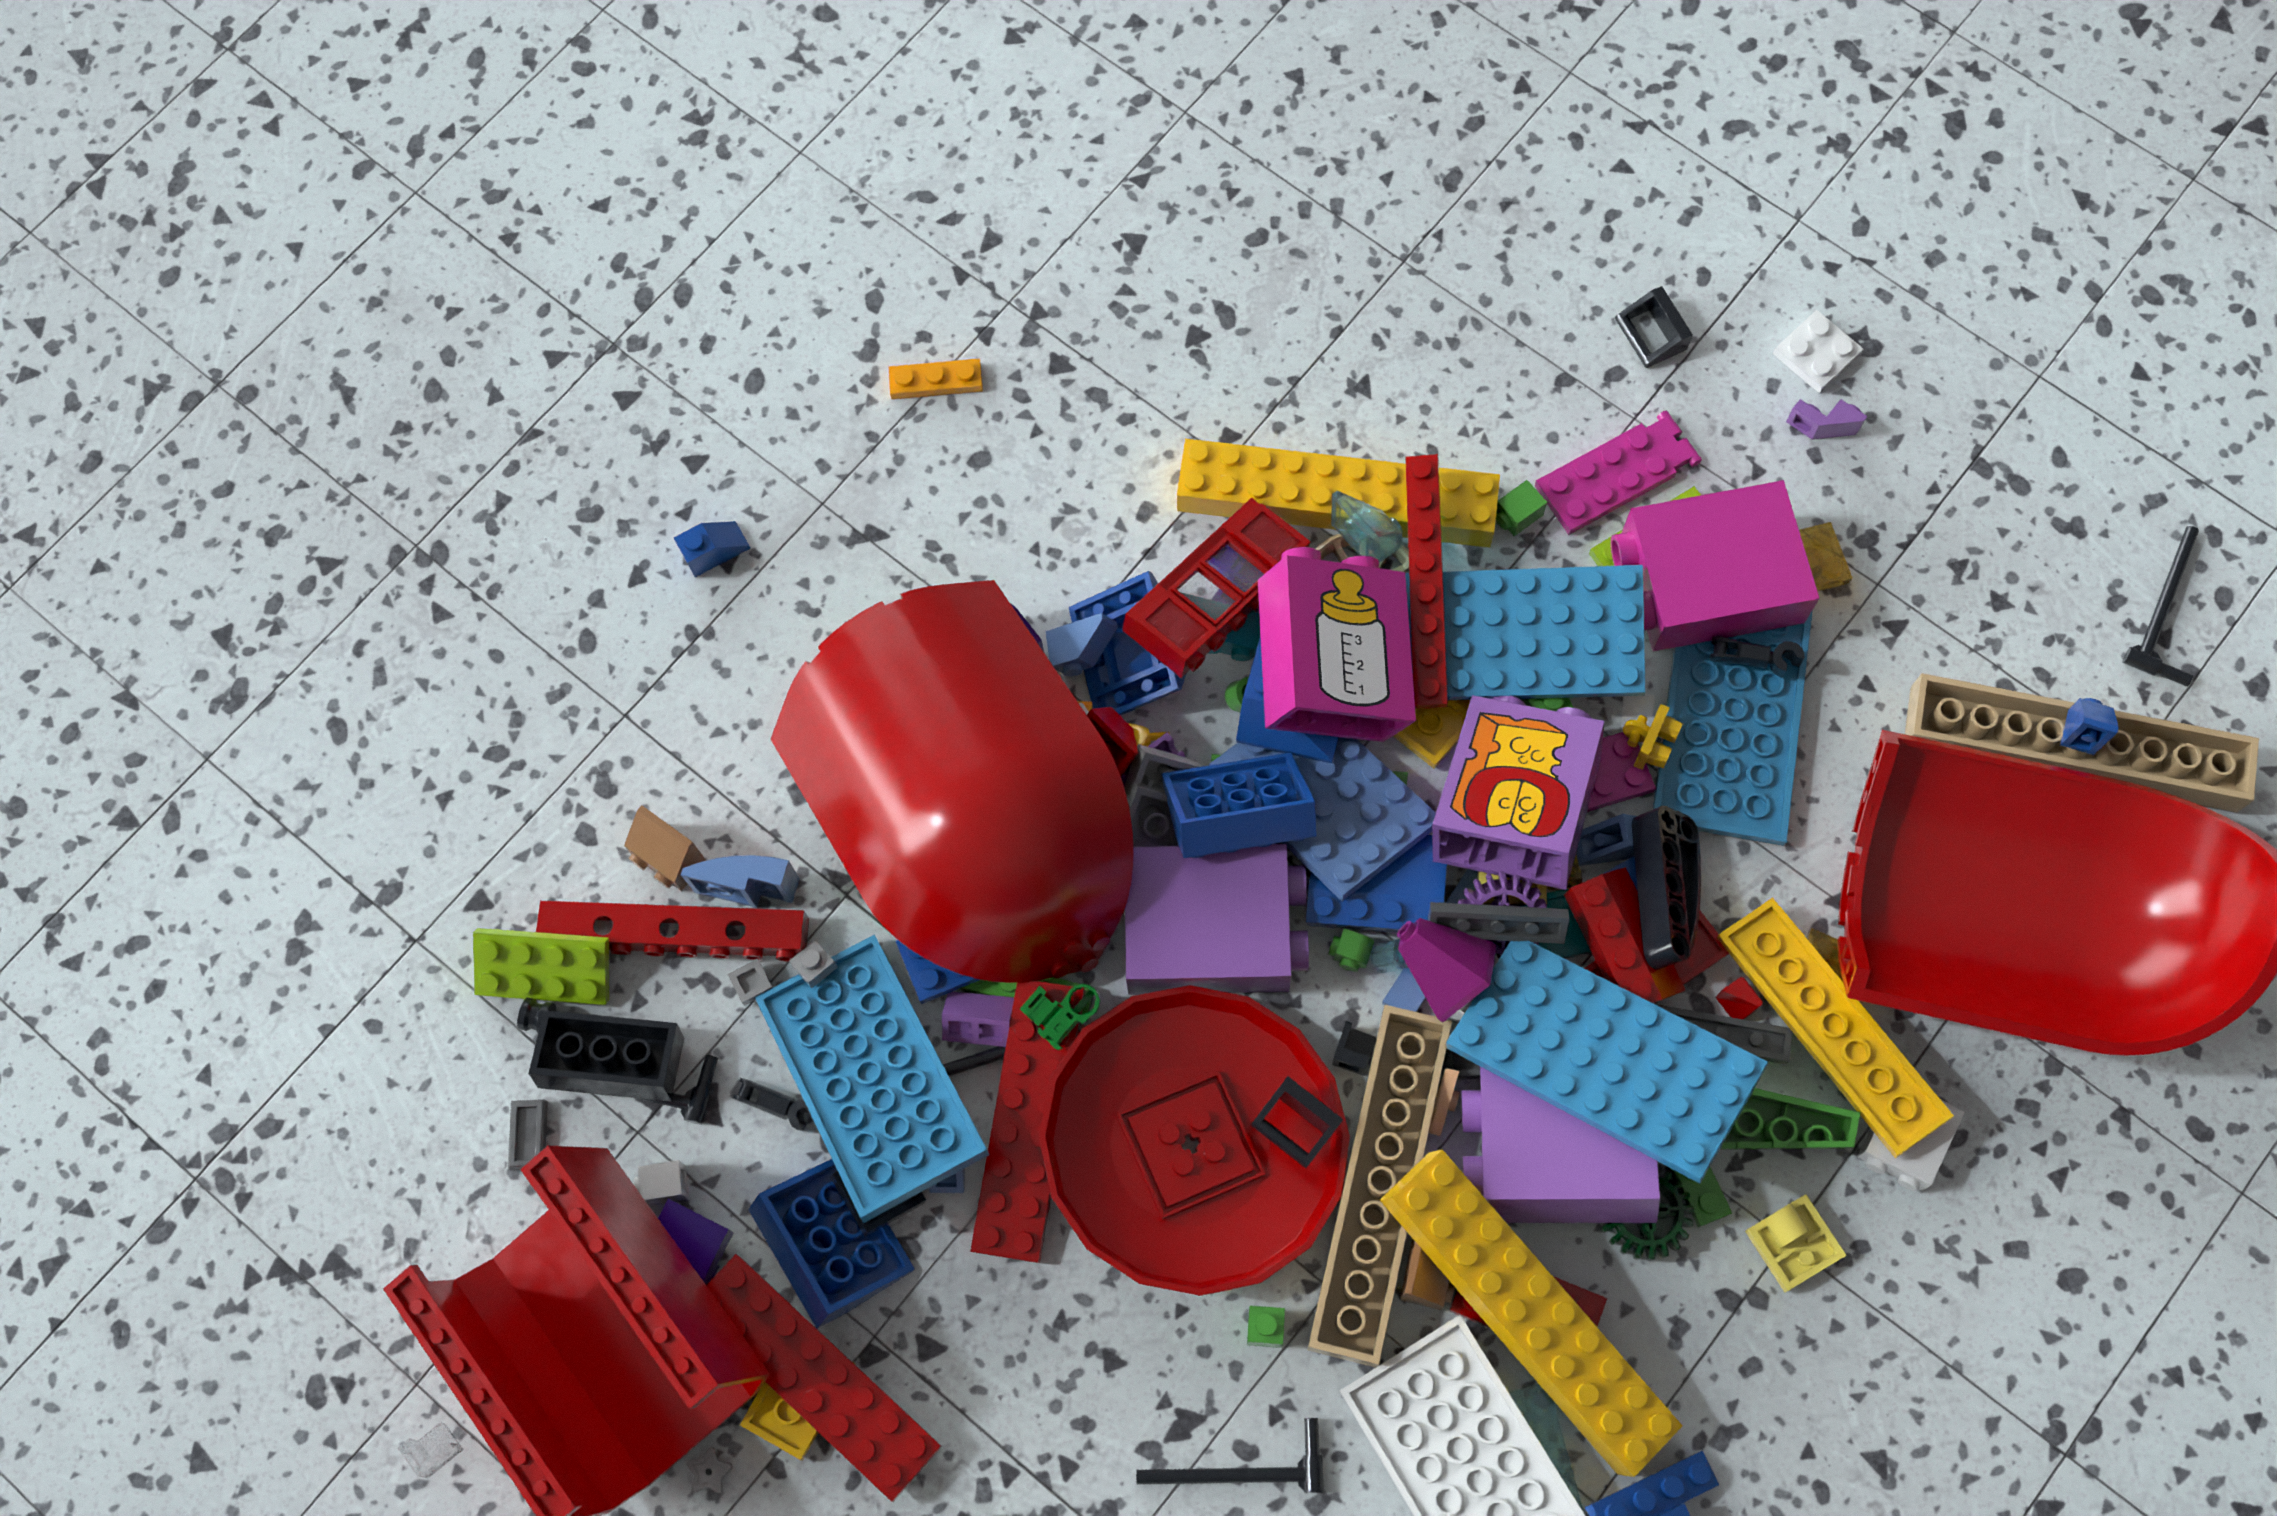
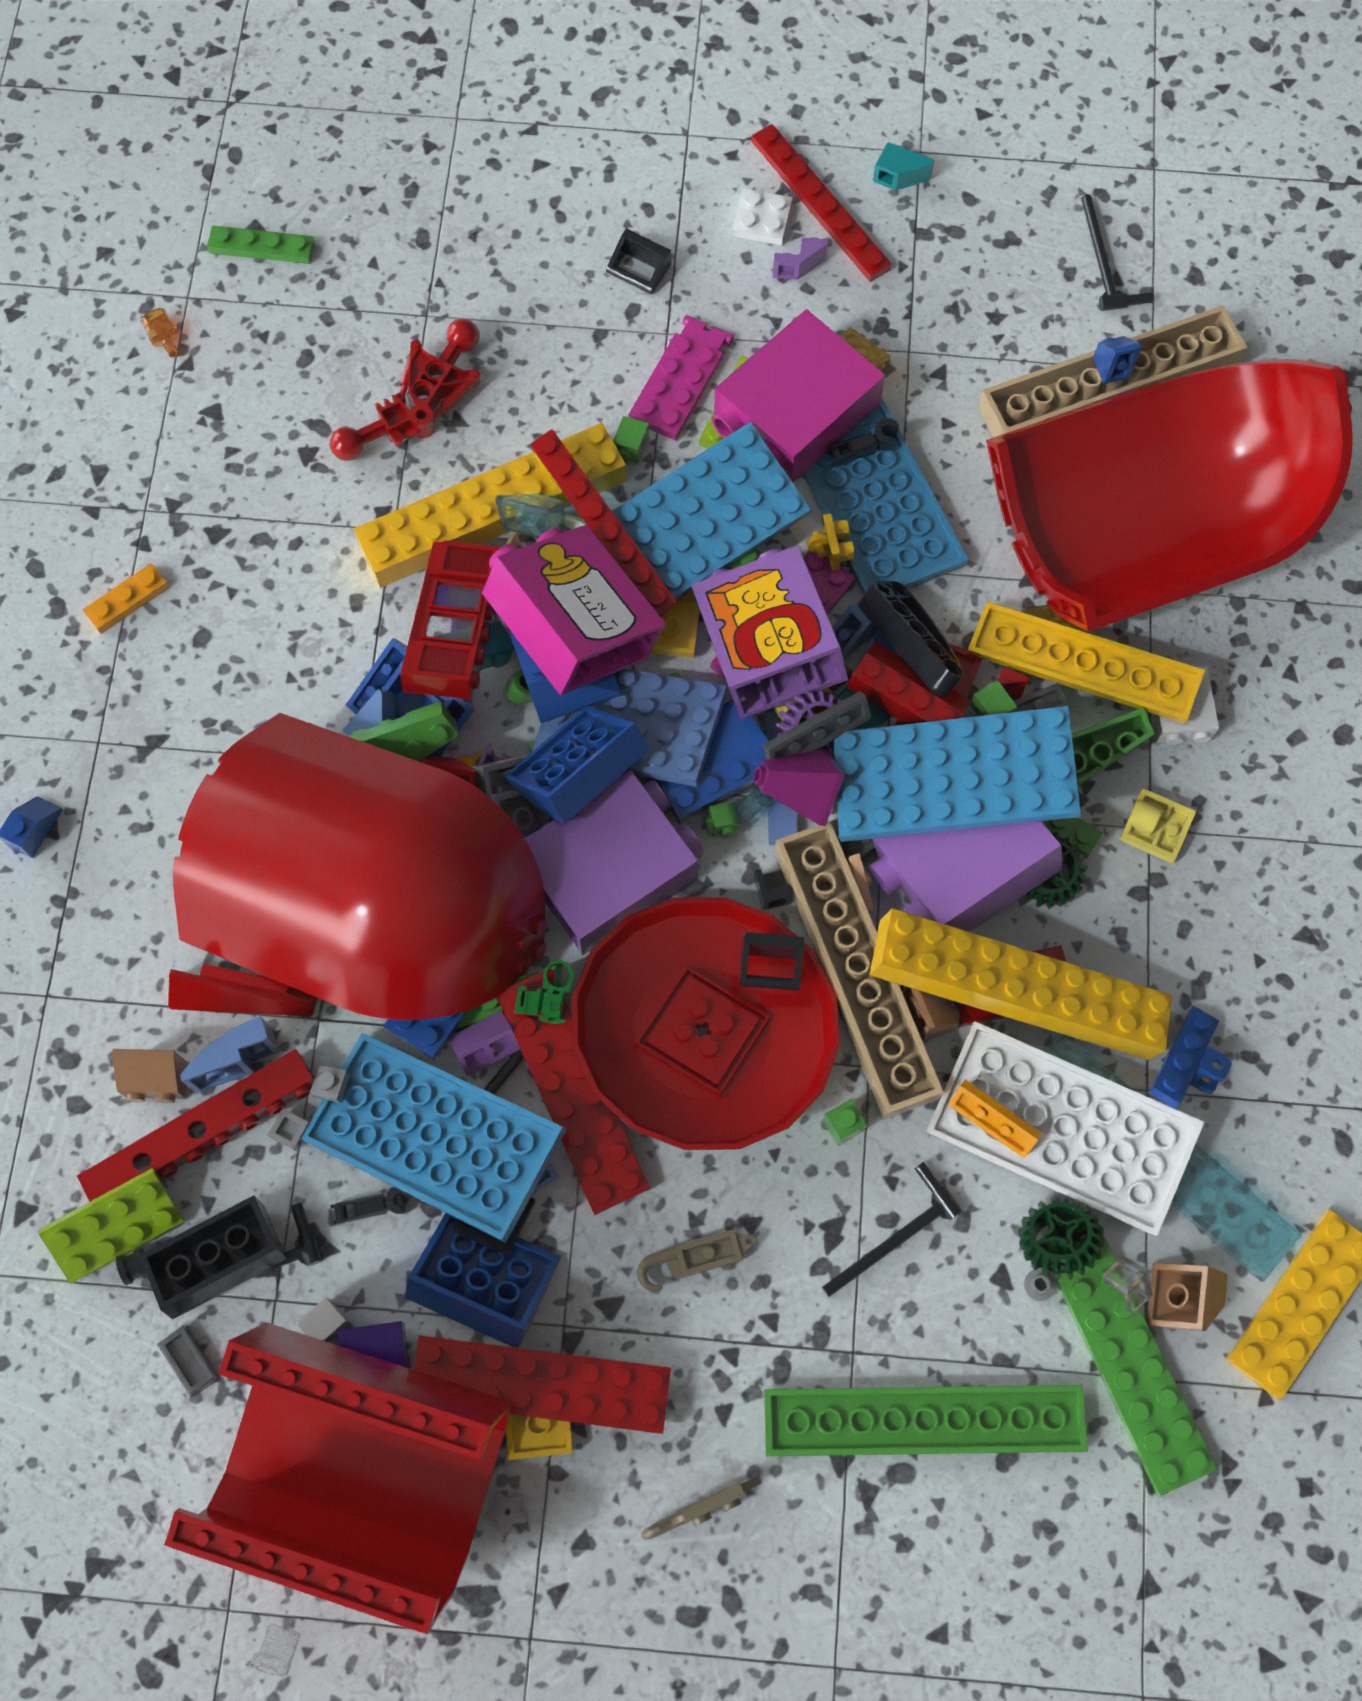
camera: 40 degrees left, 0 degrees up
(786, 820) = (236, 992): none -> red wedge
(1038, 1357) = (697, 1256): none -> dark tan plate
(1100, 678) = (414, 734): none -> bright green wedge
(1137, 132) = (161, 330): none -> clear orange piece
(1289, 98) = (261, 244): none -> bright green plate
(1346, 324) = (396, 418): none -> red piece
(1412, 1425) = (994, 1119): none -> light orange plate
(1704, 1007) = (992, 701): none -> bright green brick
(1892, 372) = (821, 203): none -> red plate
(2004, 383) = (901, 167): none -> teal slope

